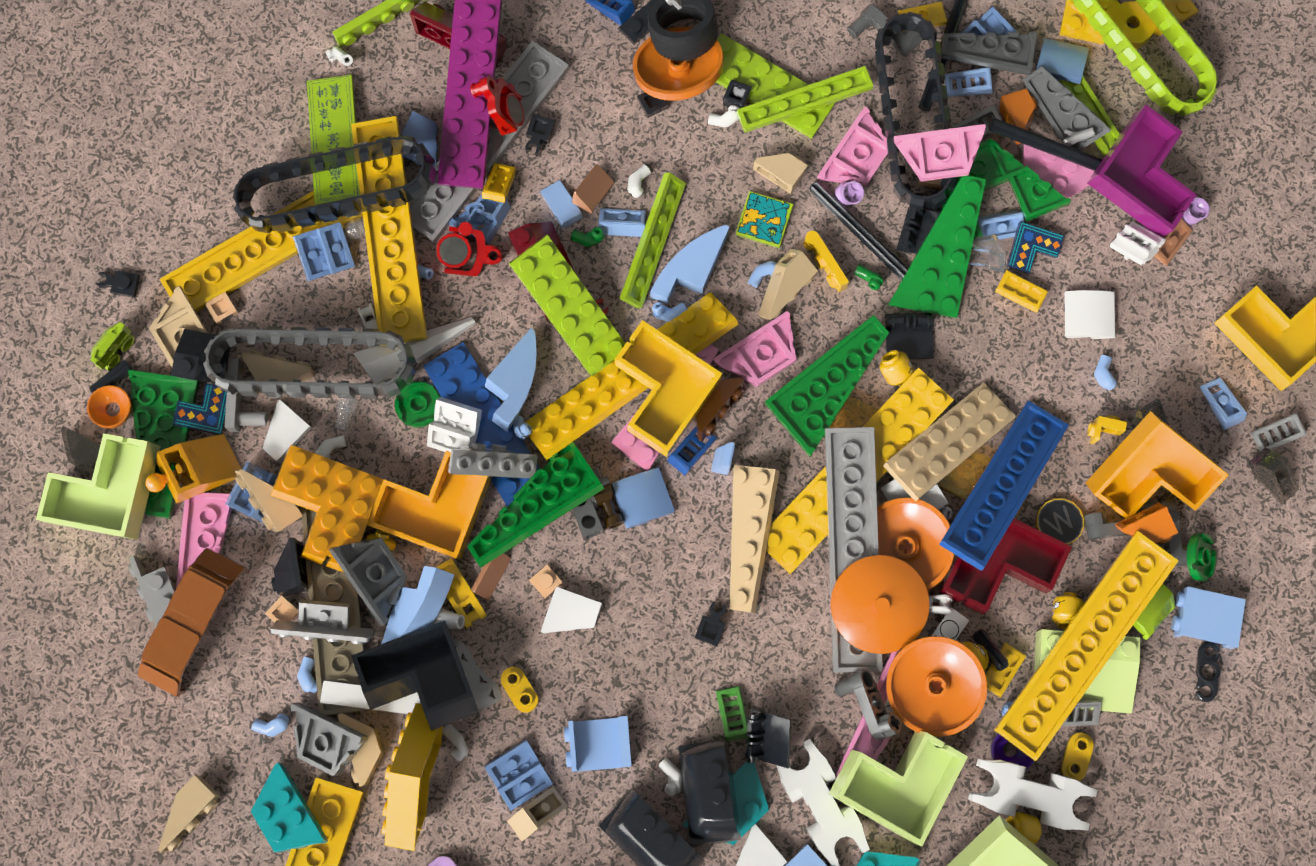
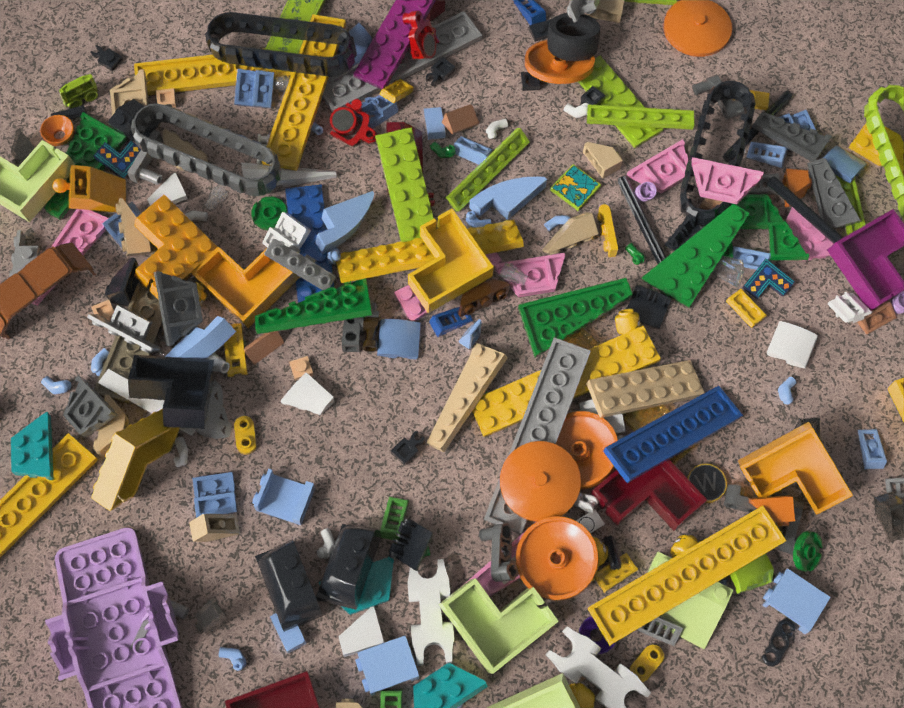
camera: 20 degrees right, 10 degrees down
(740, 365) = (513, 274): none -> clear cone
(1078, 136) = (830, 216): light grey bar -> none
(1108, 424) = (773, 427): yellow bracket -> none

